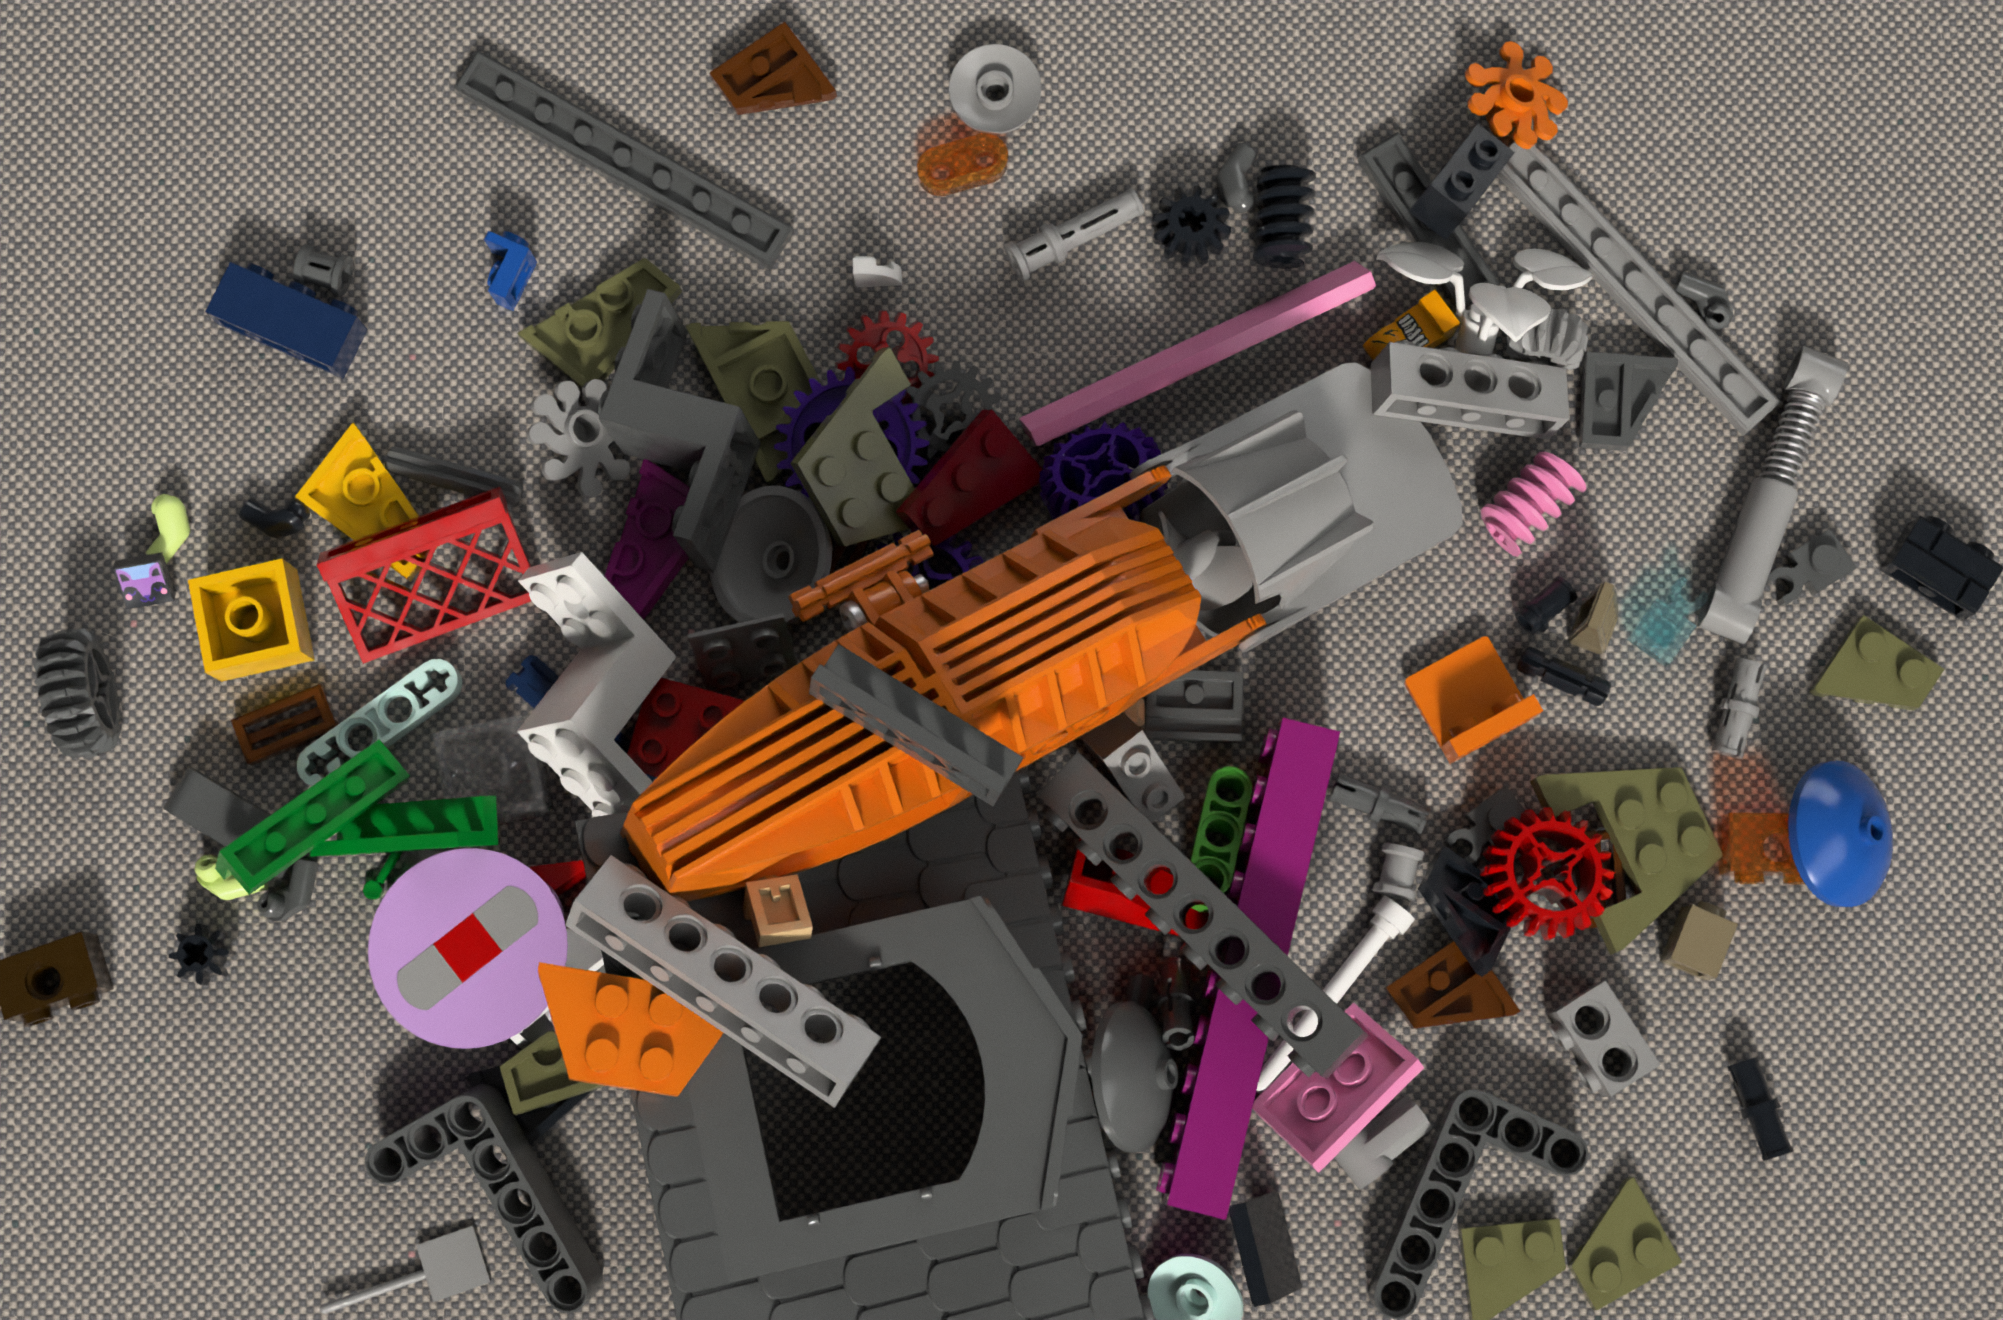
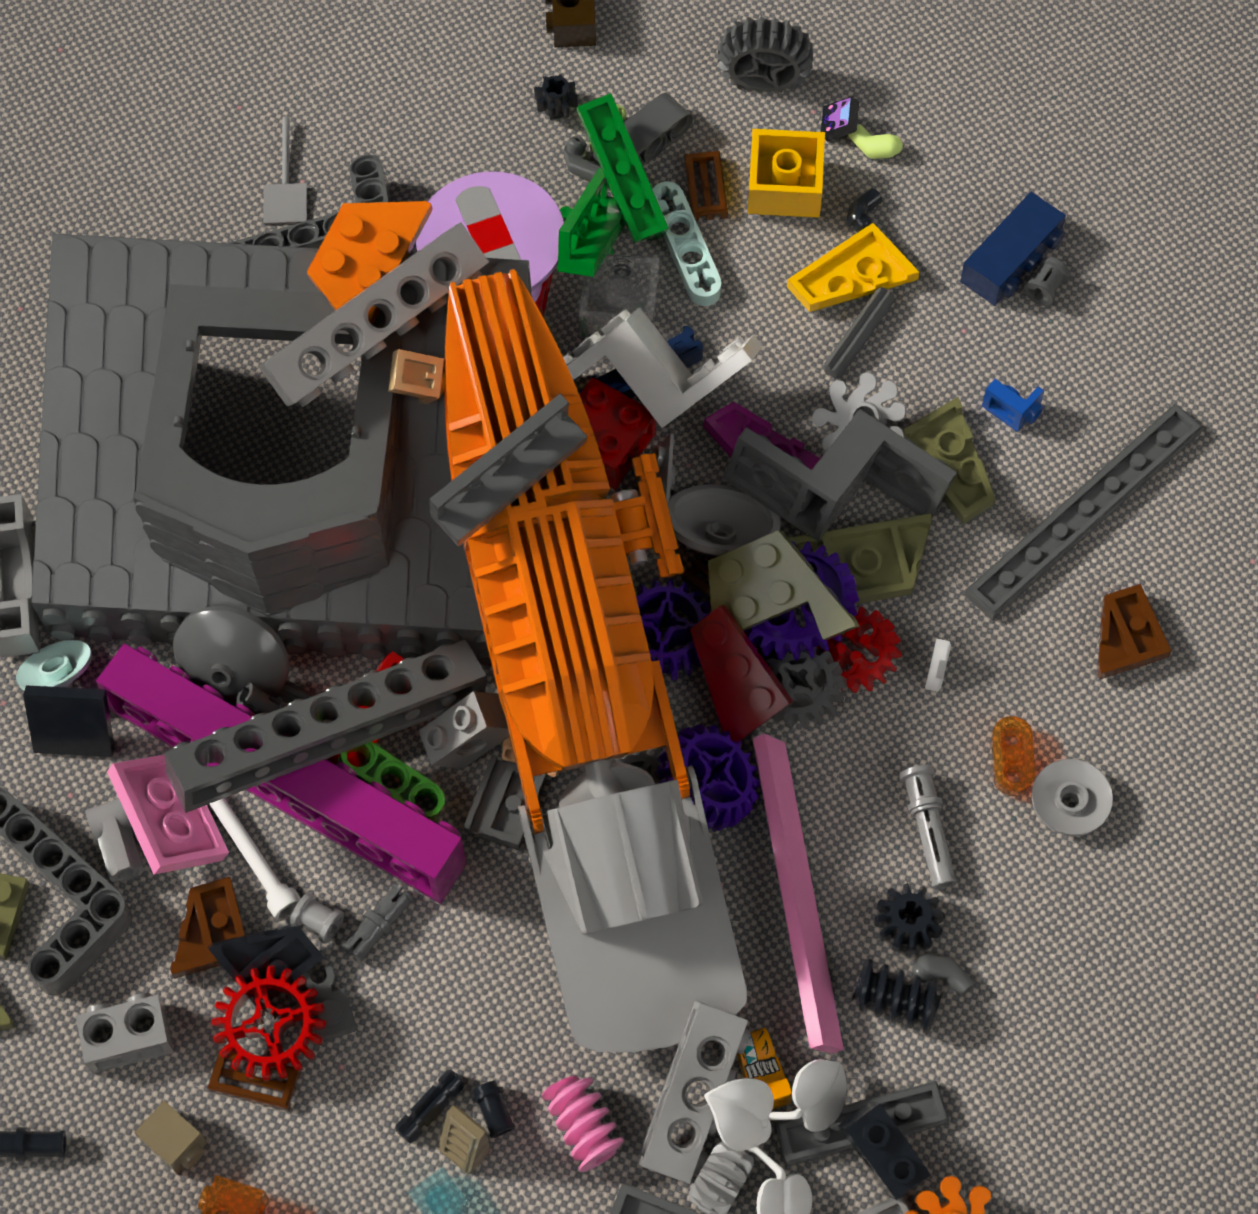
camera: 105 degrees right, 15 degrees down
(412, 538) = (814, 286): fence -> none
(1469, 699) = (435, 1019): orange bracket -> none
(1654, 831) = (274, 1134): olive wing -> none

